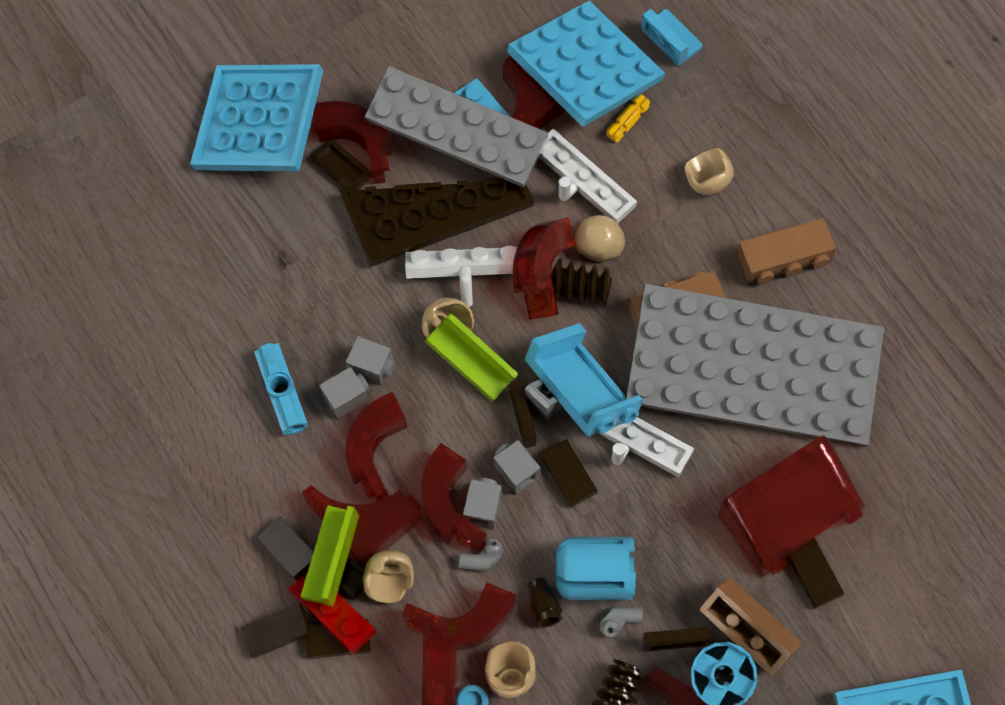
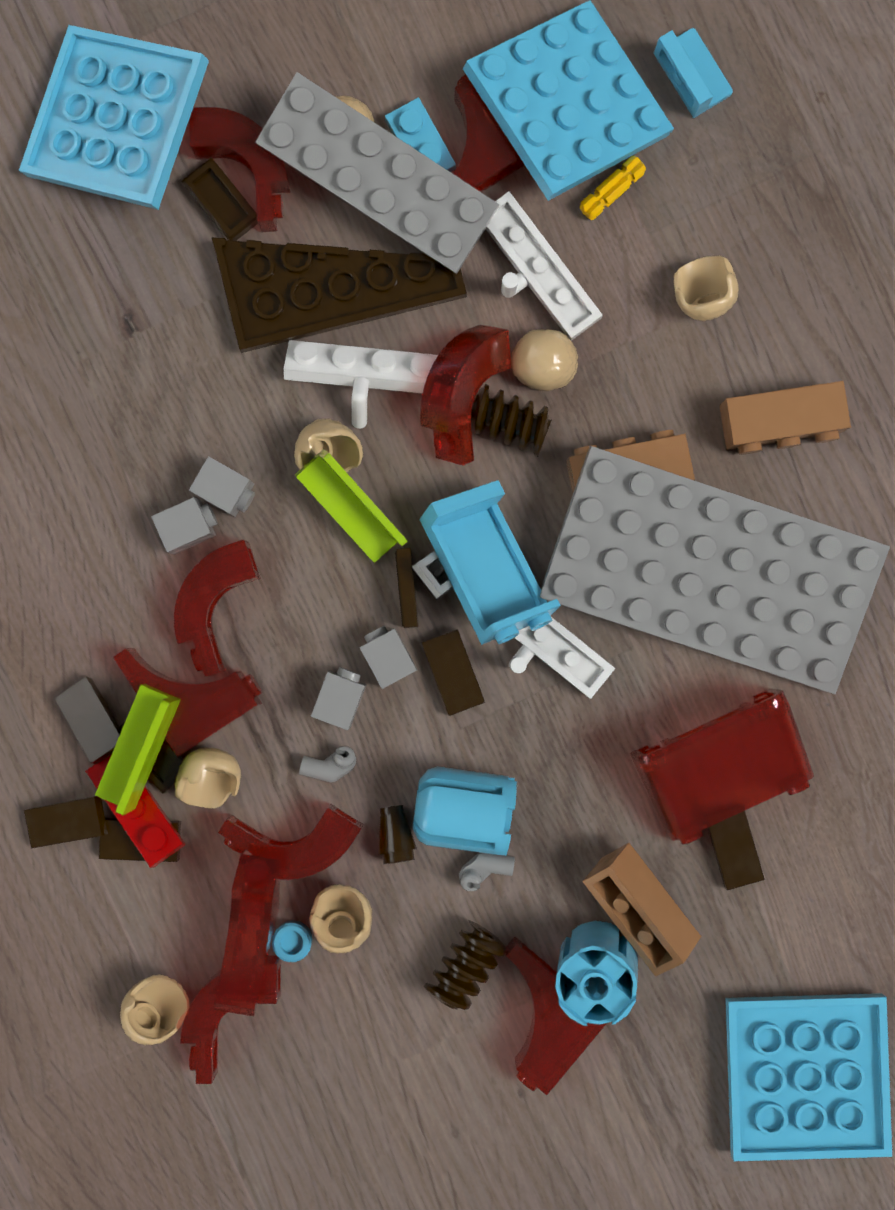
camera: 10 degrees right, 20 degrees up
(286, 404) = (98, 483): medium azure piece -> none
(437, 482) = (282, 683): clear red arch -> none
(675, 639) = (548, 907): dark brown tile -> none

